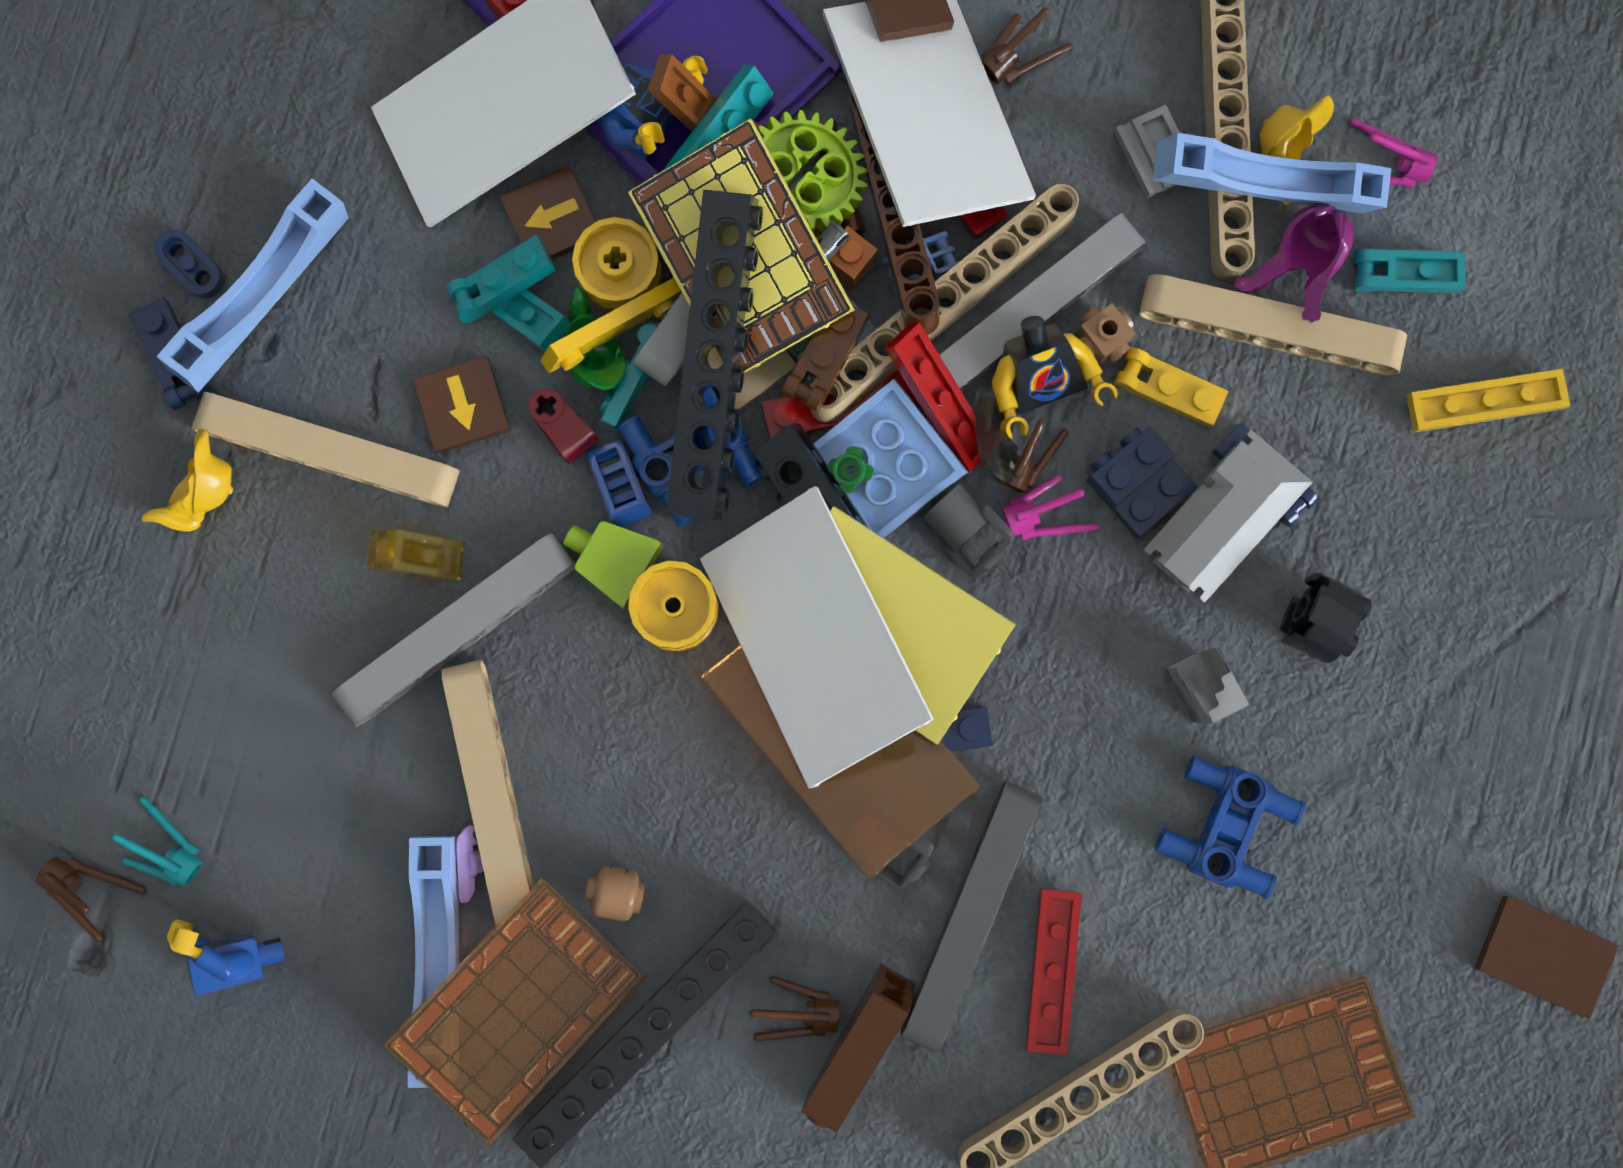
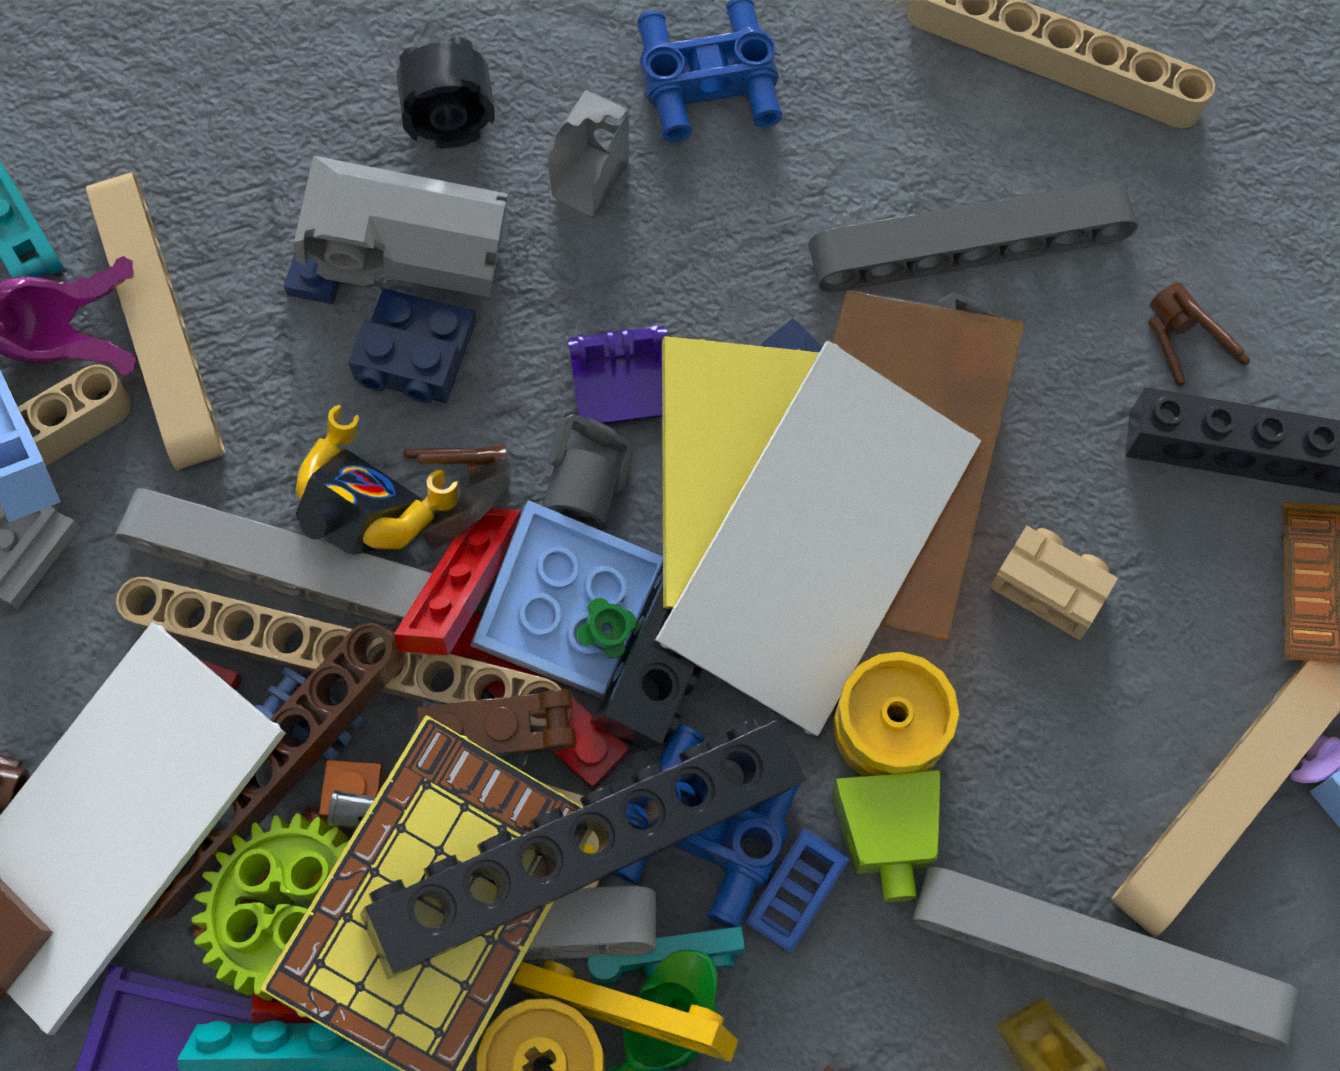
camera: 120 degrees left, 15 degrees down
(563, 429) = (782, 994): dark red piece -> none
(615, 893) = (1233, 578): medium nougat head -> none
(692, 777) = (1054, 581): none -> tan brick
(859, 1048) = (1157, 246): reddish brown slope -> none
(1023, 517) = (532, 427): dark pink plant -> none
(1032, 601) = (618, 374): none -> dark purple hinge
(1053, 971) = (963, 137): red plate -> none
(1117, 325) = (269, 467): medium nougat brick -> none
(1171, 388) = (288, 376): yellow plate -> none
(1488, 400) = (114, 86): yellow plate -> none

